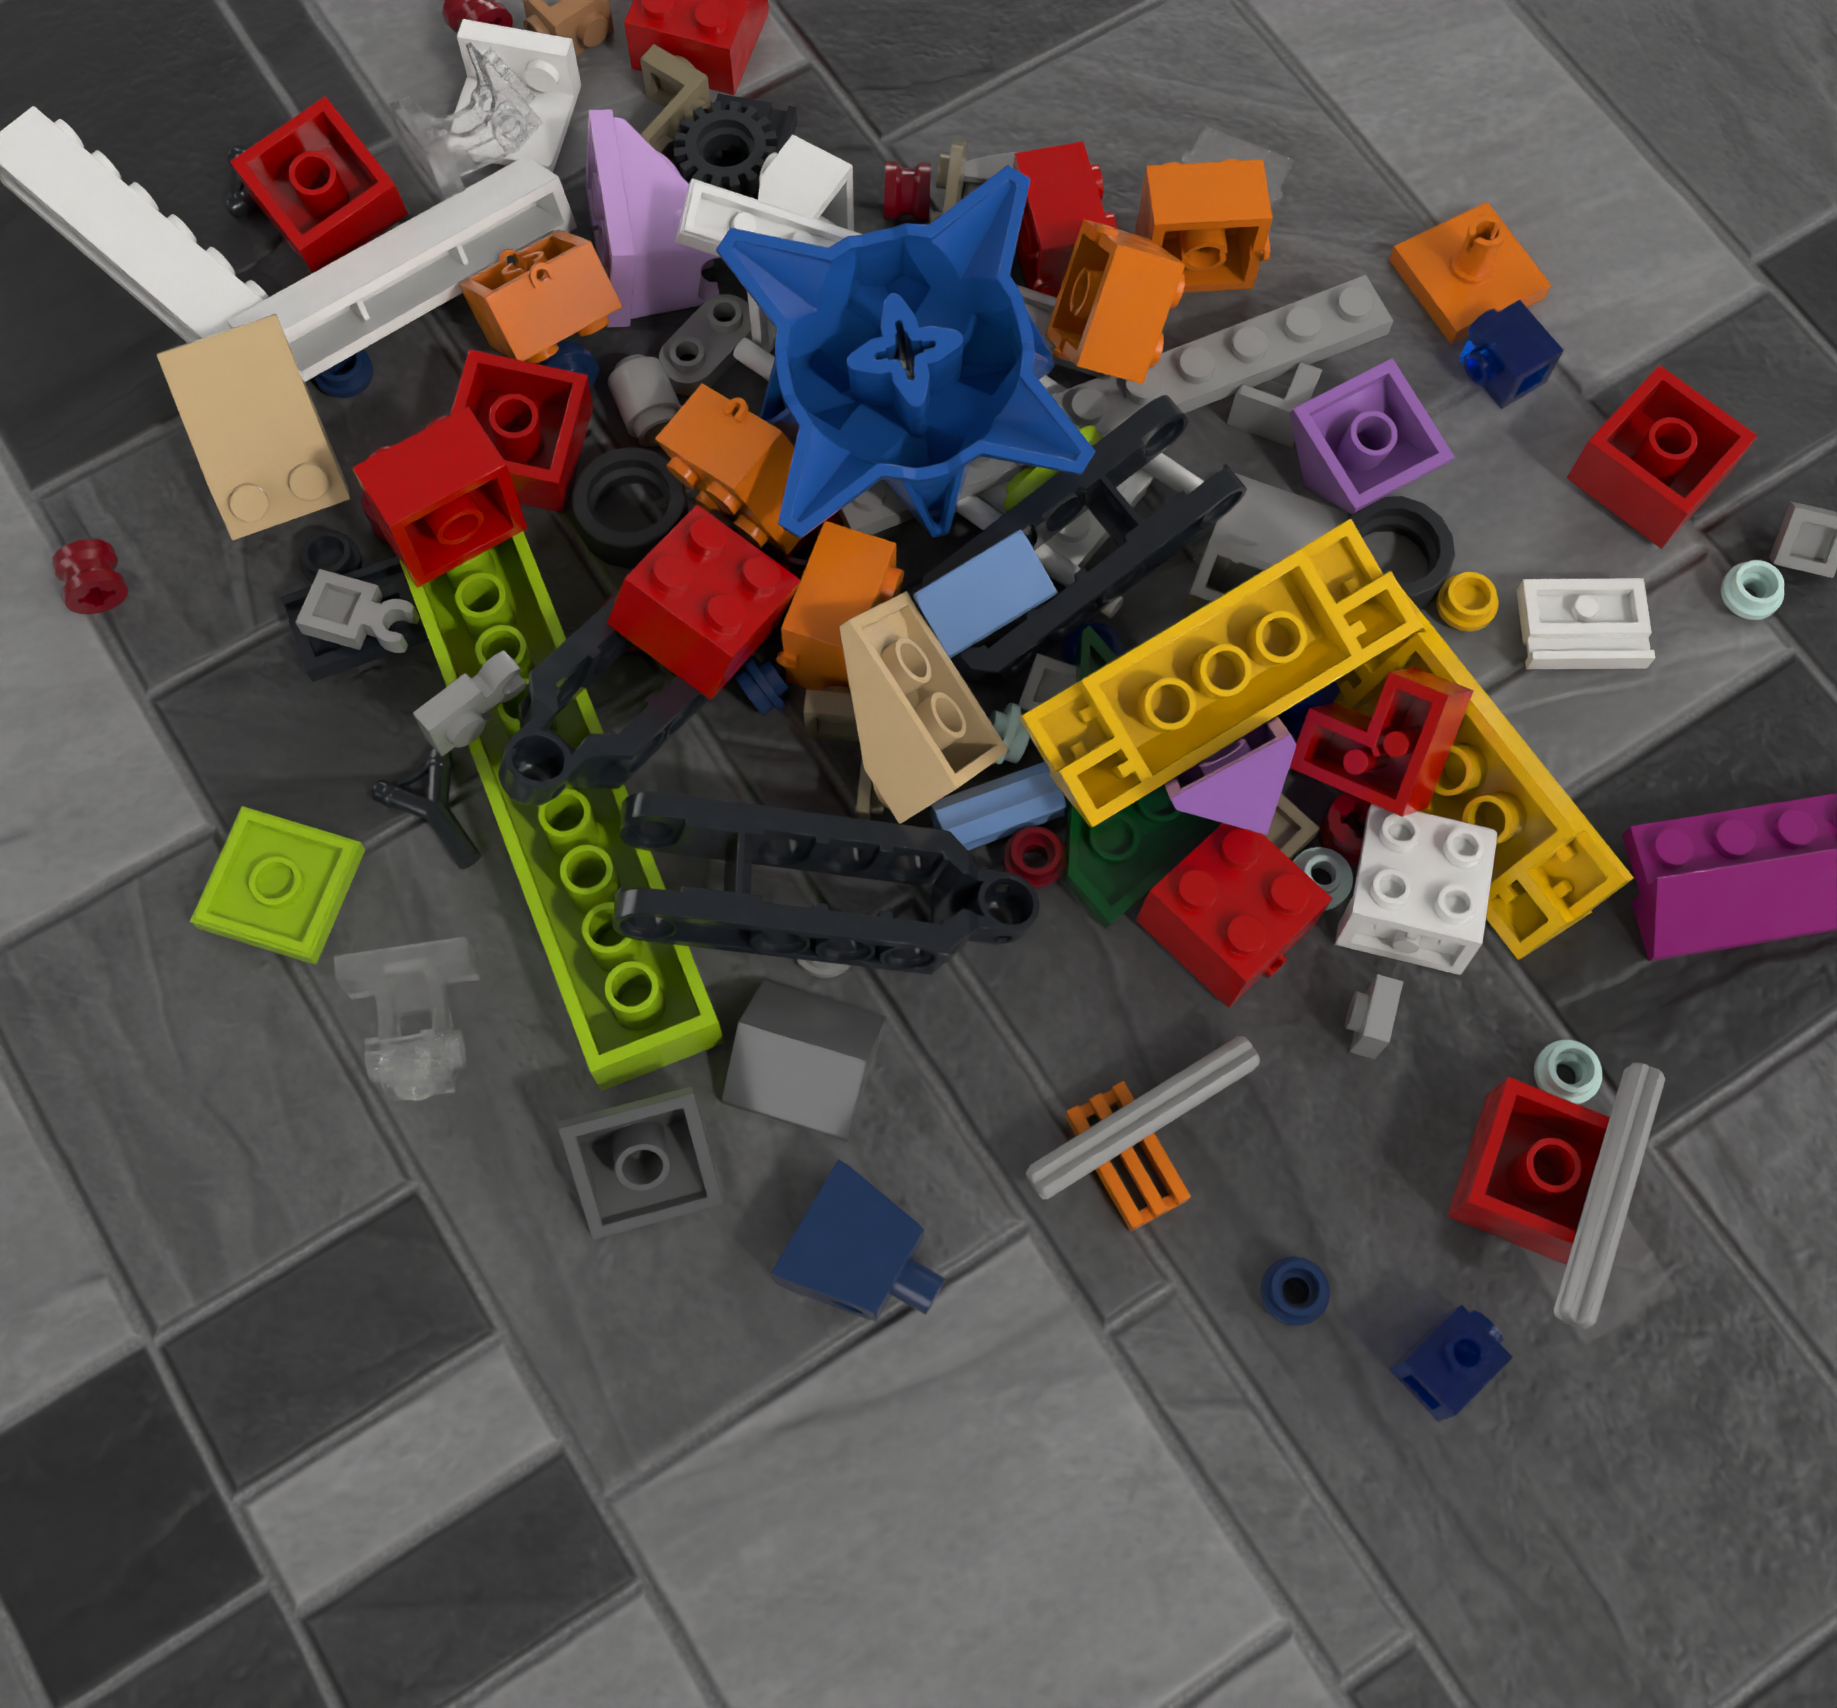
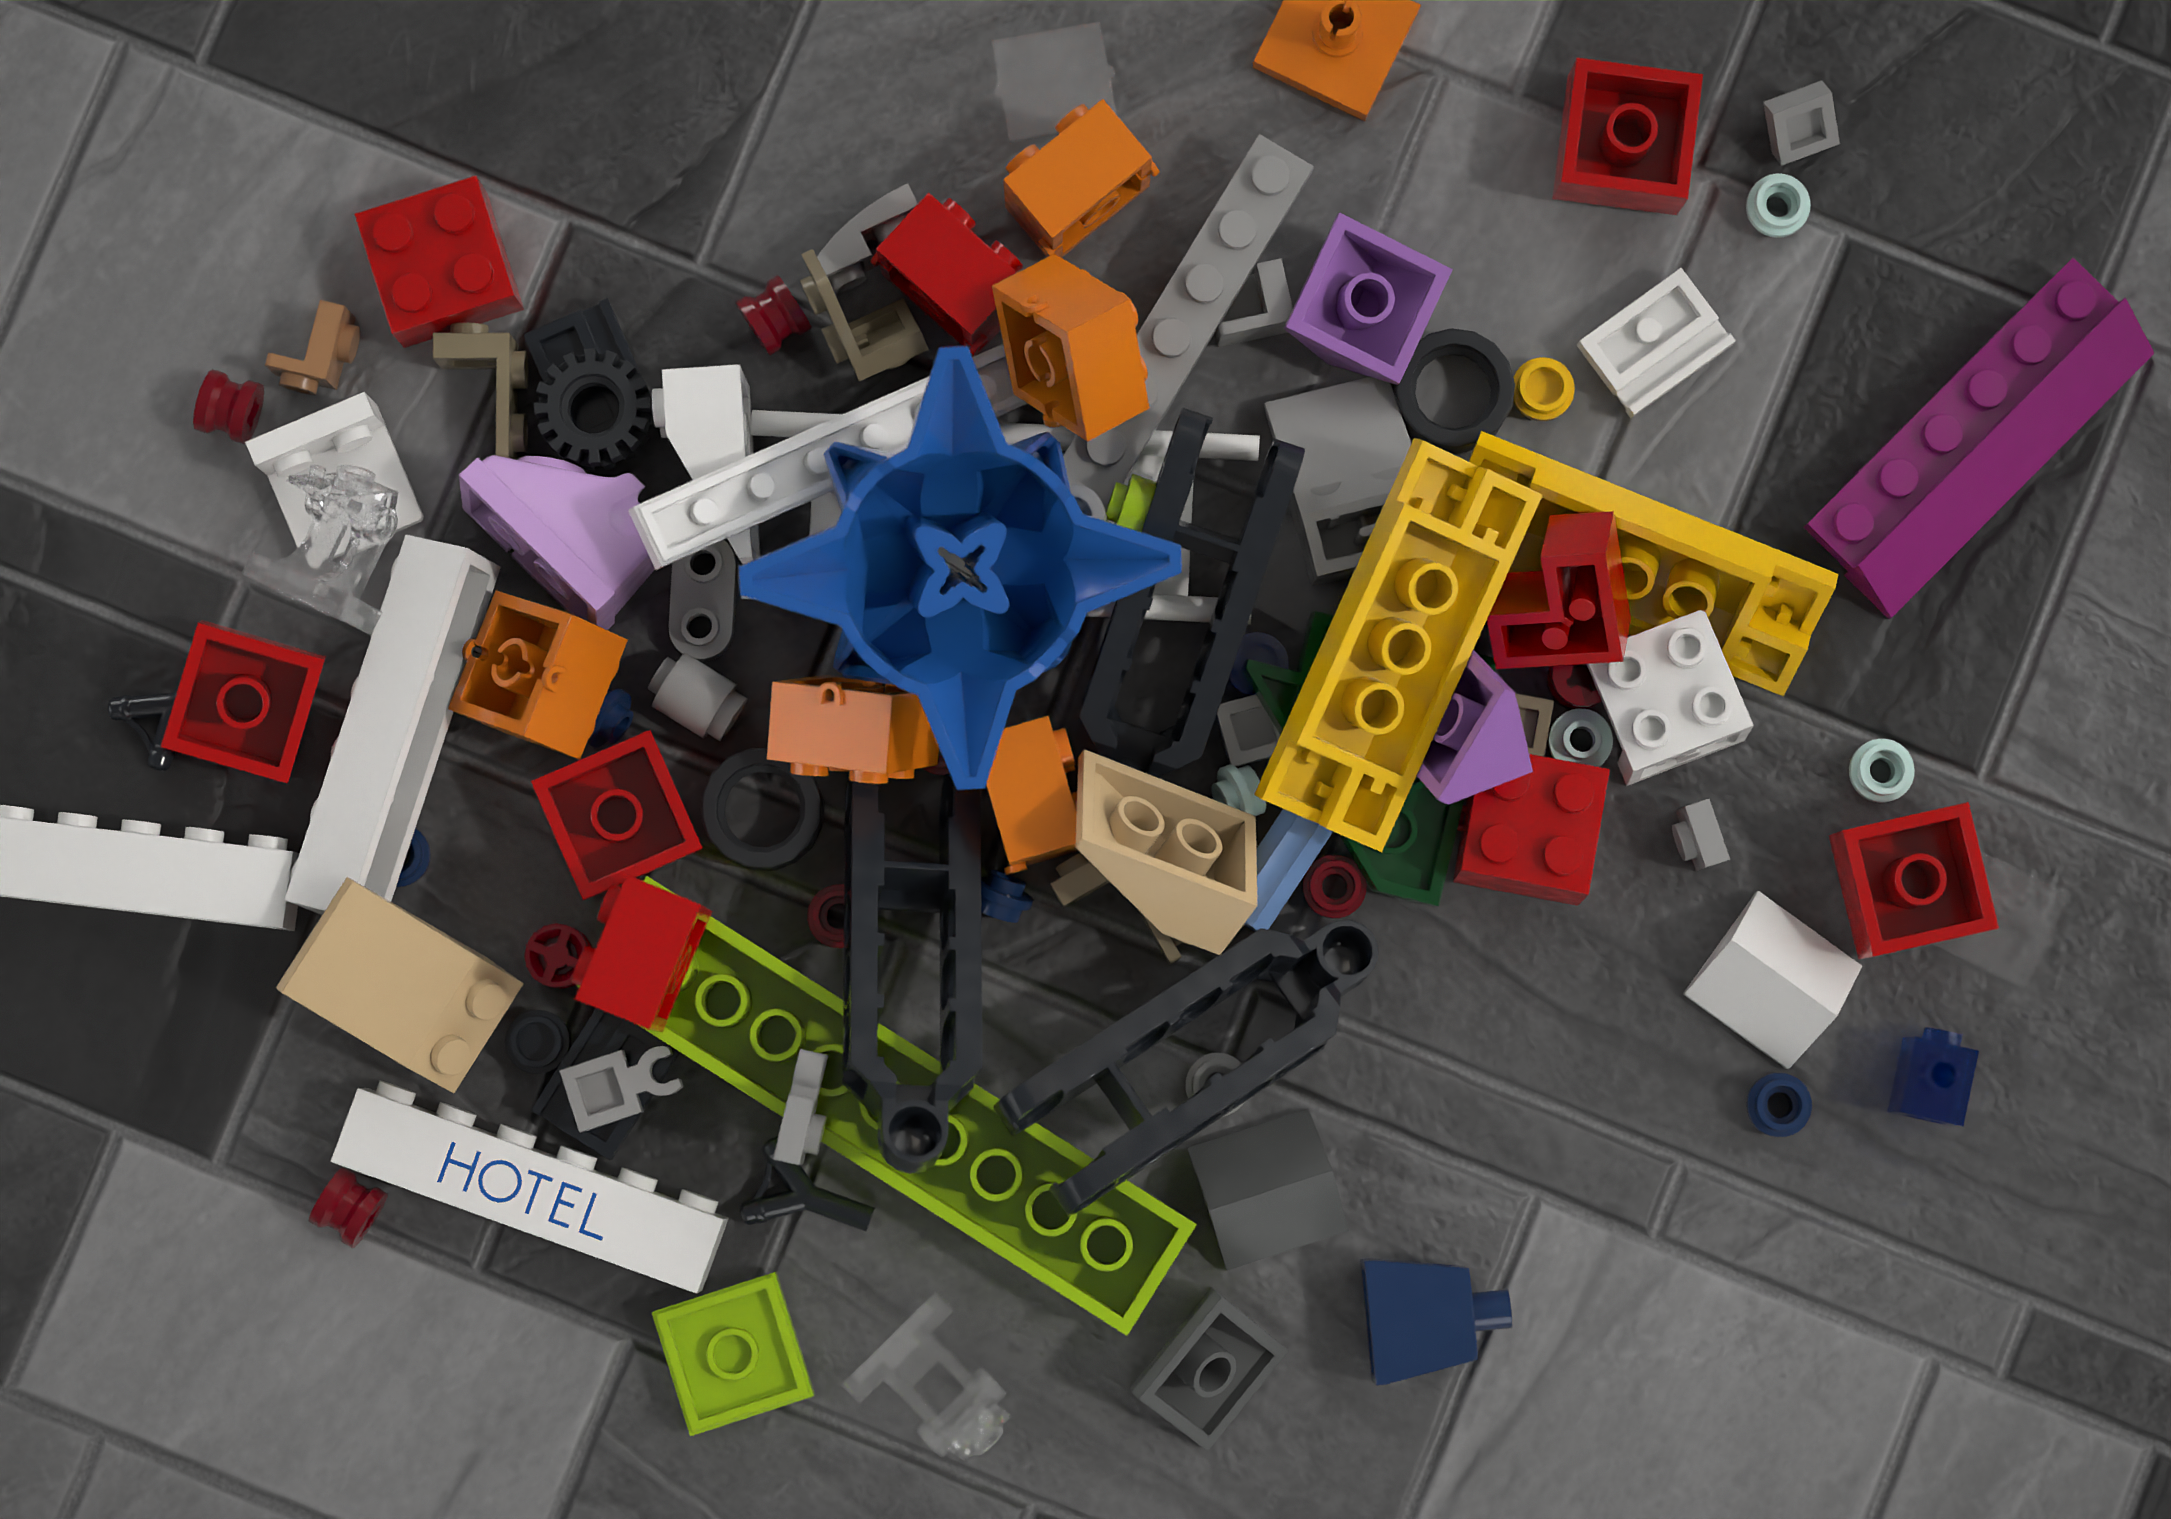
camera: 35 degrees left, 15 degrees up
(233, 657) = (529, 1188): none -> white brick
(702, 601) = (934, 890): red brick -> none
(985, 593) = (1151, 703): medium blue slope -> none
(1142, 1117) = (1574, 1053): light grey axle -> none
(1157, 1206) = (1627, 1111): orange tile -> none
(1357, 1182) = (1774, 981): none -> white slope
(1509, 353) = (1426, 110): clear blue brick -> none
(1609, 1196) = (1978, 877): light grey axle -> none

